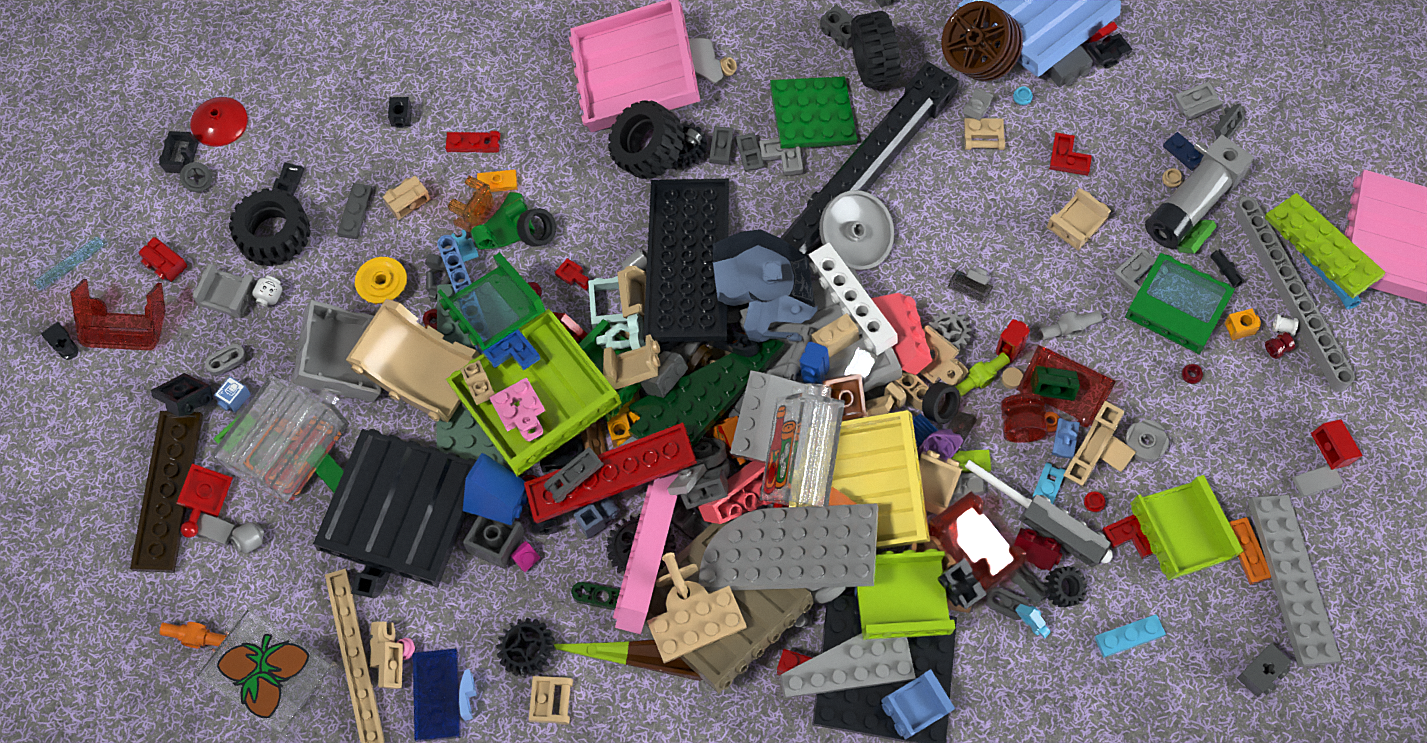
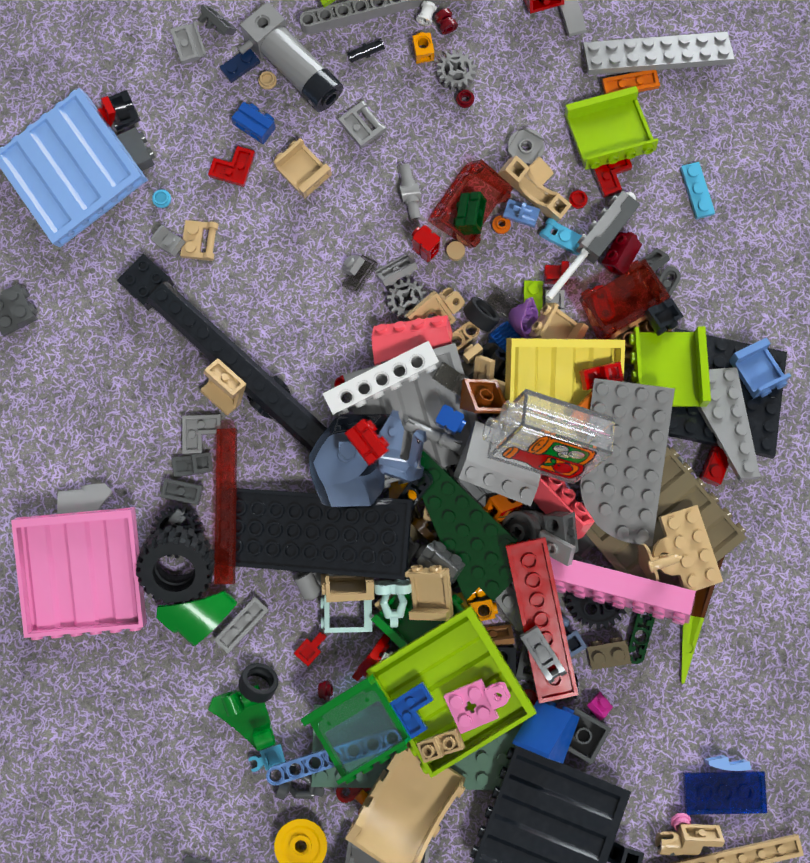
camera: 90 degrees left, 15 degrees up
(396, 106) = (91, 825): black brick -> none
(406, 197) = (204, 819): tan brick -> none
(473, 142) = (144, 747): red plate -> none
(476, 209) = (228, 743): clear orange panel -> none
(499, 180) = (194, 722): light orange plate -> none
(543, 644) = (702, 706): black gear -> none
(543, 700) = (733, 694): tan plate -> none
(580, 563) = (609, 654): none -> dark tan bracket
(593, 211) = (241, 625): none -> light grey plate
(598, 168) = (196, 618): none -> green panel
(709, 181) = (225, 506): none -> clear red tile
(728, 66) = (89, 476): tan plate -> none
(781, 283) = (367, 441): none -> red brick
(813, 112) = (155, 398): green plate -> none
(828, 162) = (223, 387): none -> tan panel
(837, 25) = (56, 356): dark grey brick -> none
(837, 335) = (420, 398): tan brick -> none
(857, 229) = (298, 369): light grey dish -> none
(875, 49) = (101, 326): black tyre -> none
(887, 523) = (607, 371): none -> red slope
(977, 314) = (396, 269): none -> light grey plate
(982, 41) = (105, 197): reddish brown wheel -> none
(982, 374) = (451, 275): lime pin -> none
(1005, 477) = (554, 272): none -> red panel
(1024, 418) = (502, 244): clear red wheel -> none
(1032, 617) = (684, 264): medium azure plate -> none
(1075, 586) = (654, 241): black tyre -> none
(1120, 168) = (253, 122): none -> blue brick
(1179, 303) = (398, 94): panel -> none
(1197, 236) = (334, 67): bright green plate -> none
(1233, 364) = (456, 70): none -> light grey gear
(1256, 679) = (733, 90): dark grey brick -> none

